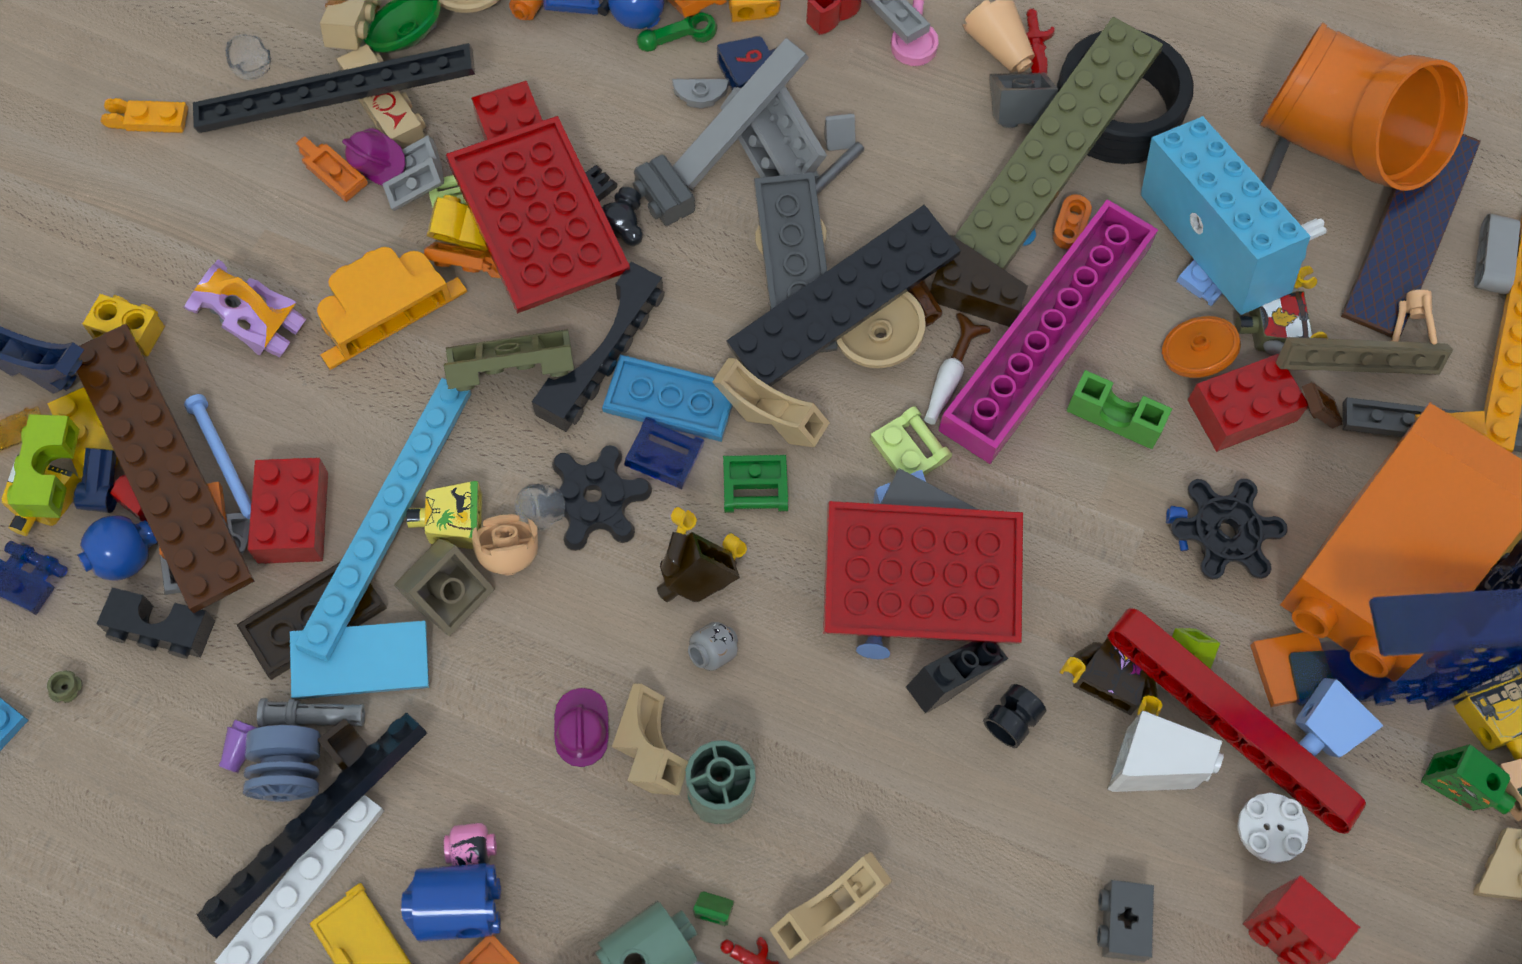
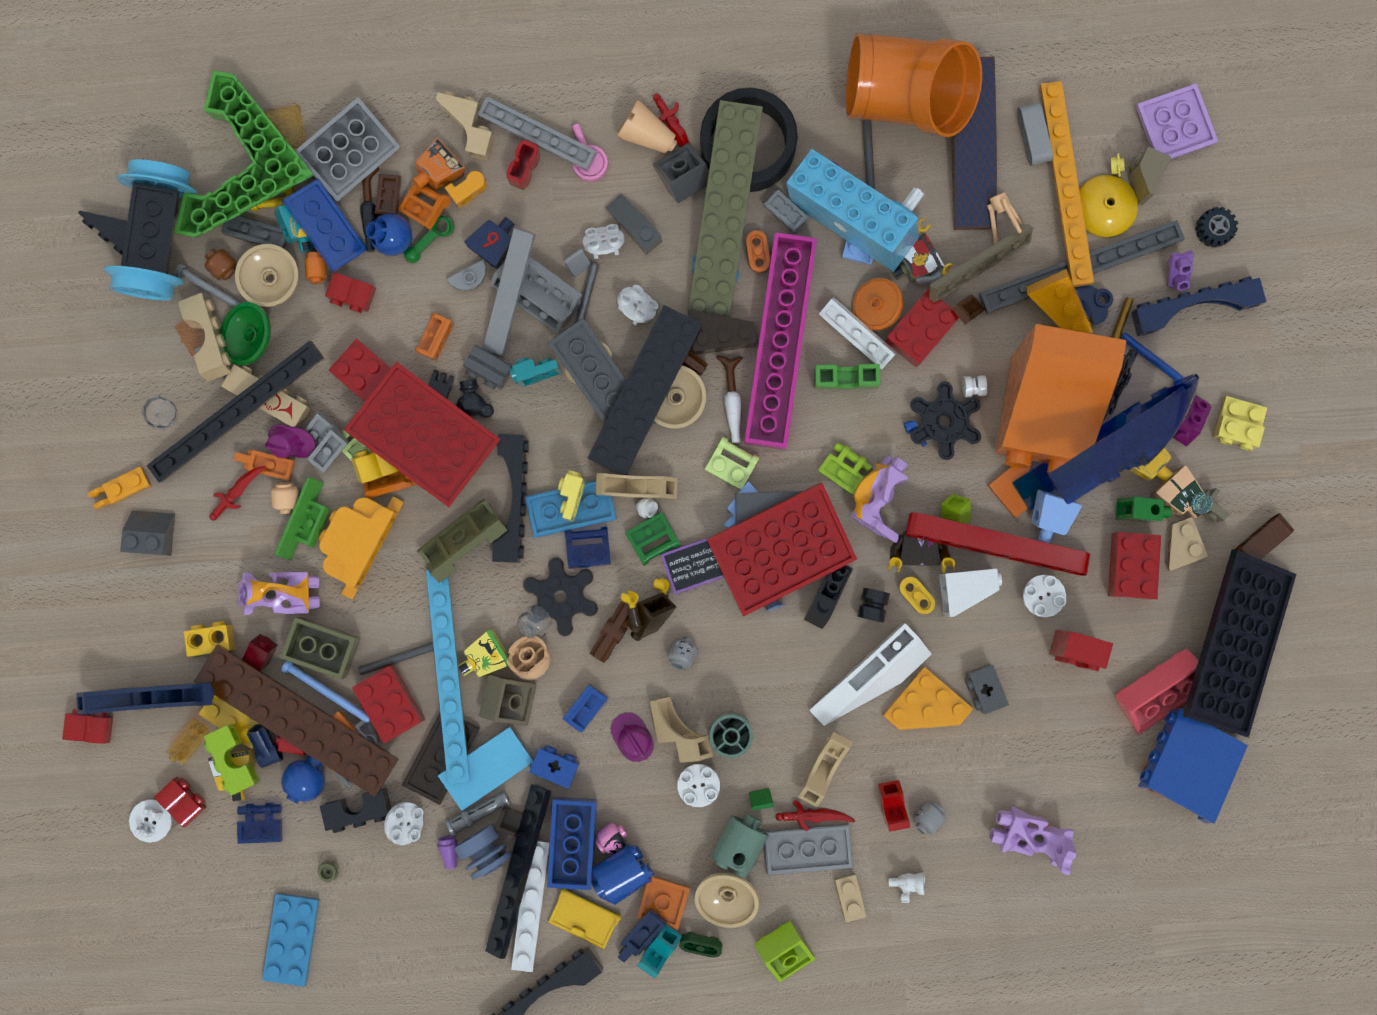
camera: 20 degrees left, 20 degrees up
(139, 176) = (148, 533): none -> dark grey slope
(173, 366) = (260, 652): none -> dark red brick
(193, 684) = (402, 833): none -> white plate
(250, 397) = (320, 648): none -> olive brick
(257, 185) = (234, 492): none -> red piece
(327, 212) = (284, 497): none -> light nougat head
(331, 247) = (305, 521): none -> bright green bracket
(343, 466) = (396, 658): none -> dark grey bar
(411, 819) = (572, 843): none -> blue brick
(458, 724) = (561, 776): none -> blue brick
(540, 650) = (585, 708): none -> blue hinge
(551, 41) = (350, 292): none -> red brick
(621, 132) = (434, 337): none -> orange hinge
(633, 573) = (611, 633): none -> reddish brown piece
(640, 818) = (700, 795): none -> white plate
(684, 370) = (571, 488): none -> light yellow plate
(718, 217) = (527, 372): none -> teal plate
(769, 441) = (647, 507): none -> white plate
(787, 545) = (691, 566): none -> black tile
(875, 116) = (603, 240): none -> white plate
(885, 203) = (637, 304): none -> white plate
(934, 128) = (634, 224): none -> dark grey slope
(971, 813) = (877, 673): none -> white wedge
(1026, 900) = (927, 704): none -> light orange plate
(1054, 529) = (841, 473): none -> lime plate
(1083, 738) = (916, 595): none -> yellow plate
(1085, 562) = (876, 491): none -> lavender hips
(1130, 192) = (785, 211): none -> light grey plate
(1157, 368) = (857, 333): none -> white plate
(1289, 505) = (974, 386): none -> white wheel
(1427, 856) = (1134, 565): none -> red brick

